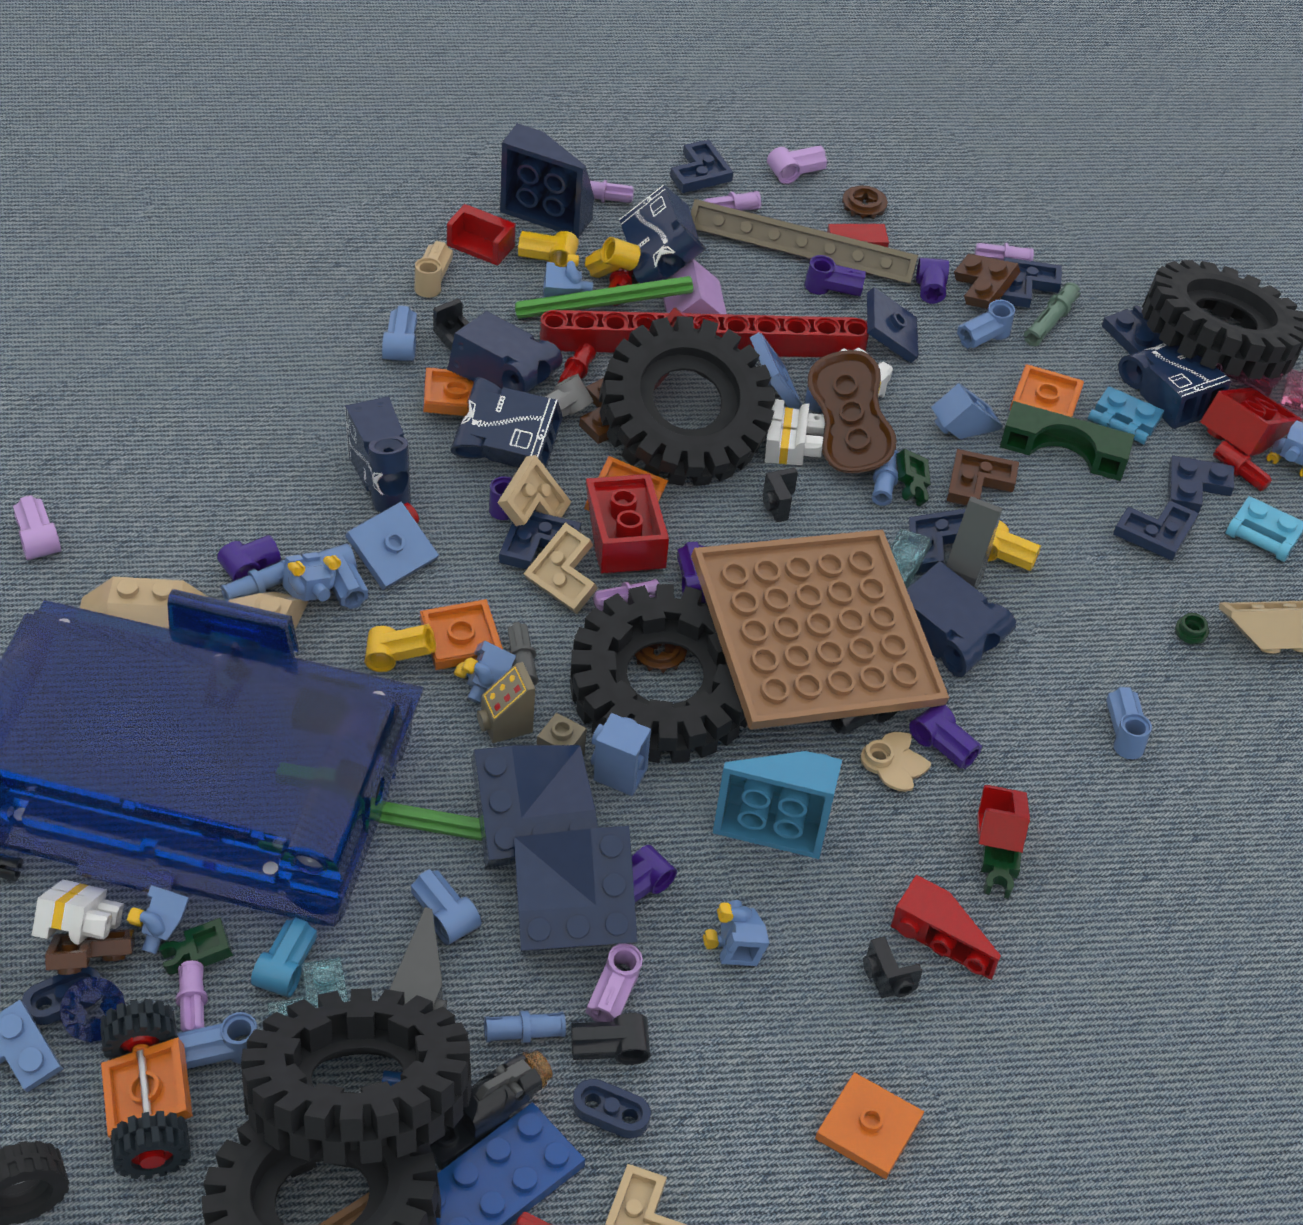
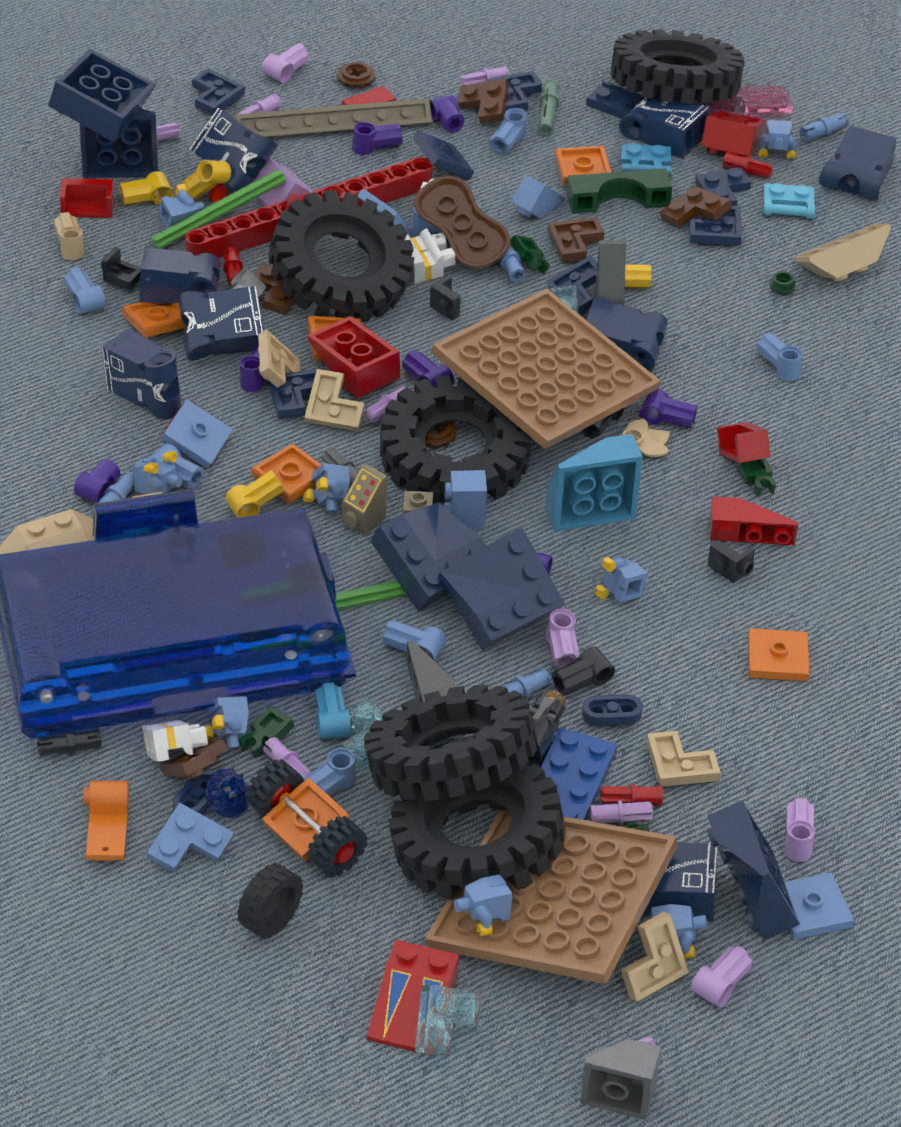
camera: 25 degrees left, 5 degrees down
(531, 125) = (100, 94): none -> dark blue slope
(1149, 488) = (695, 202): none -> reddish brown plate

